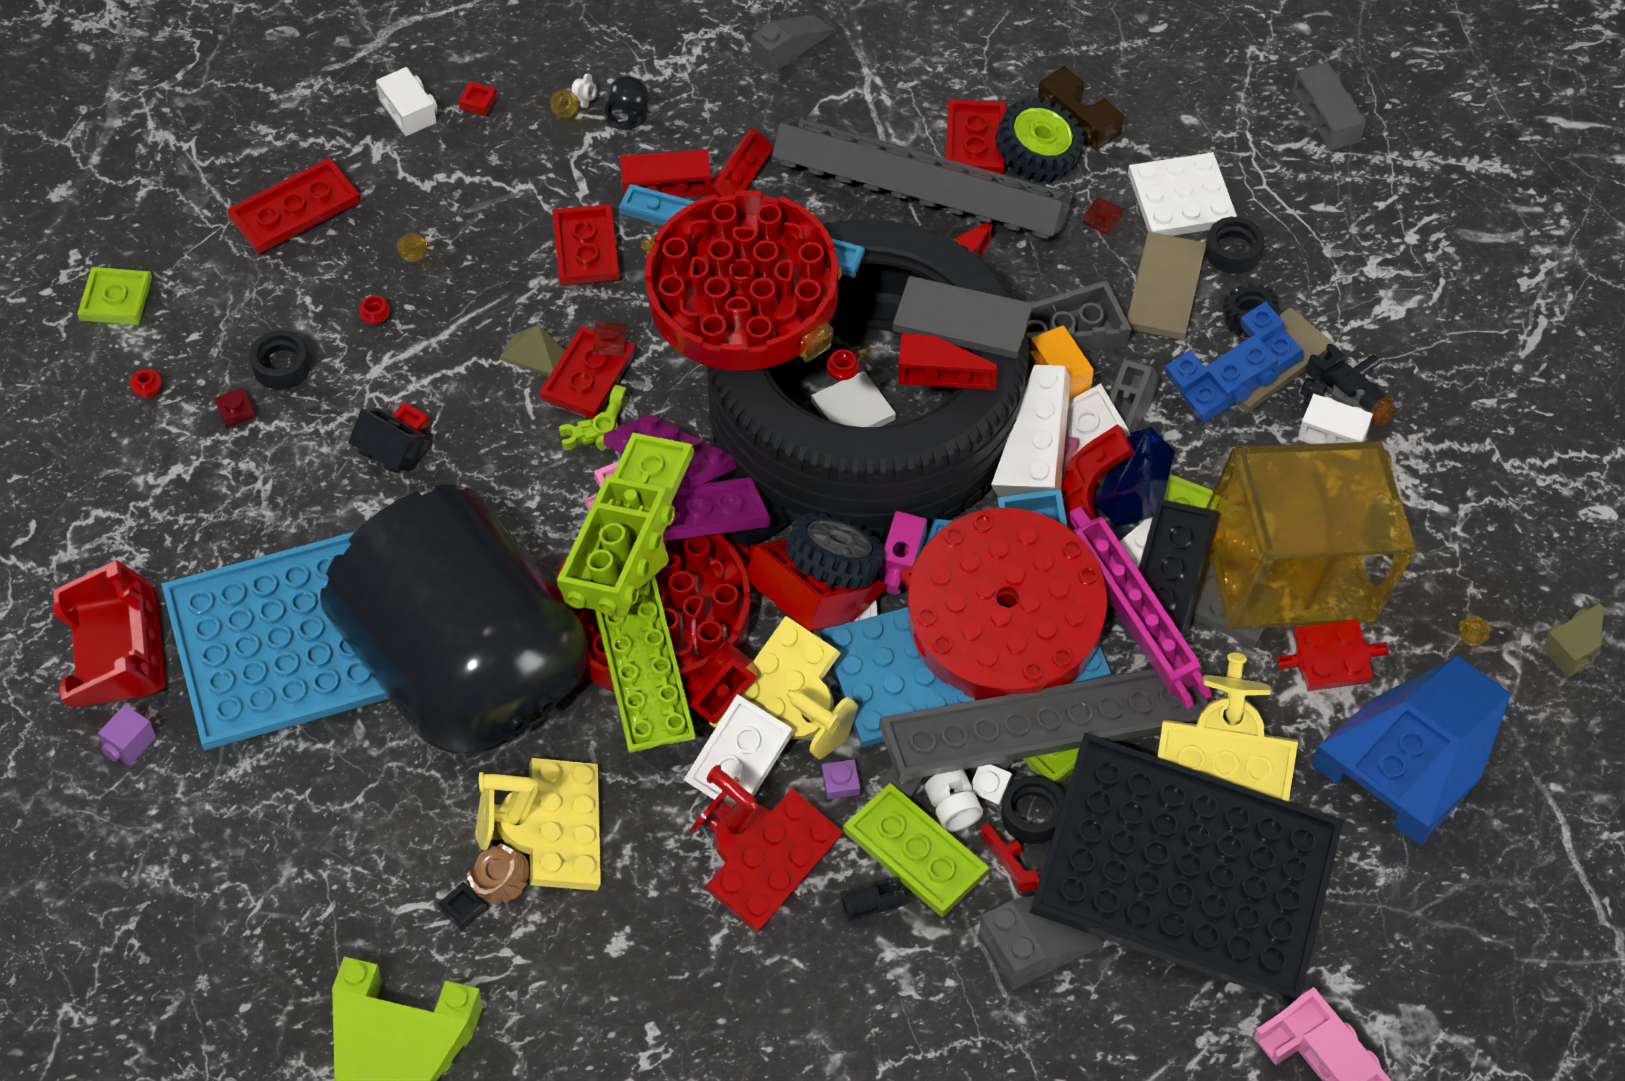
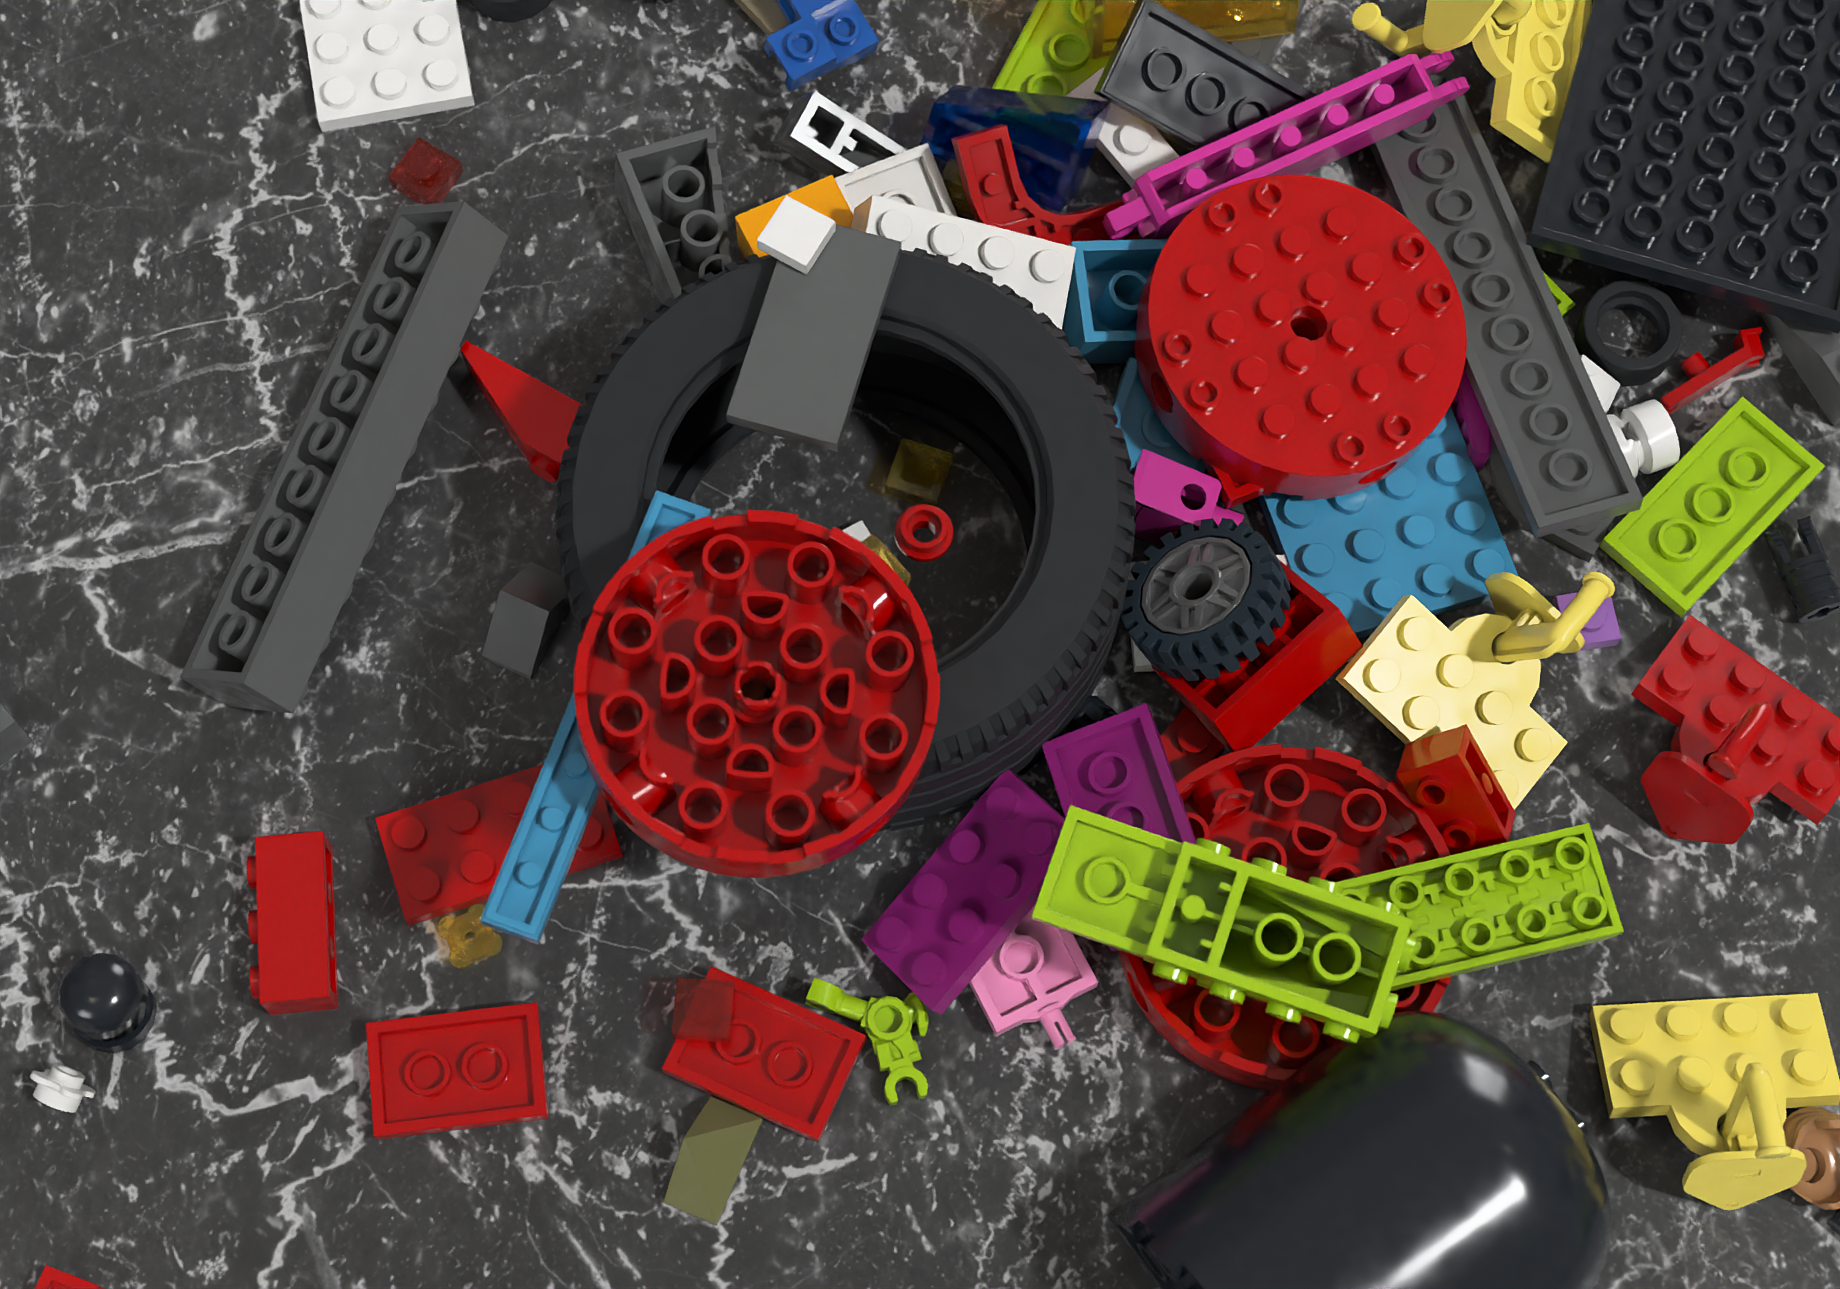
camera: 90 degrees left, 15 degrees up
(557, 101) = (97, 1143): clear yellow plate -> none
(741, 164) = (286, 784): red plate -> none
(743, 745) = (1576, 764): white plate -> none
(935, 362) = (926, 370): red slope -> none
(973, 132) = (232, 370): red plate -> none
(1016, 300) = (796, 234): none -> white tile
(1039, 139) = (261, 258): black wheel -> none
(1098, 121) = (154, 223): dark brown arch -> none
(1166, 285) = (584, 83): dark tan tile -> none

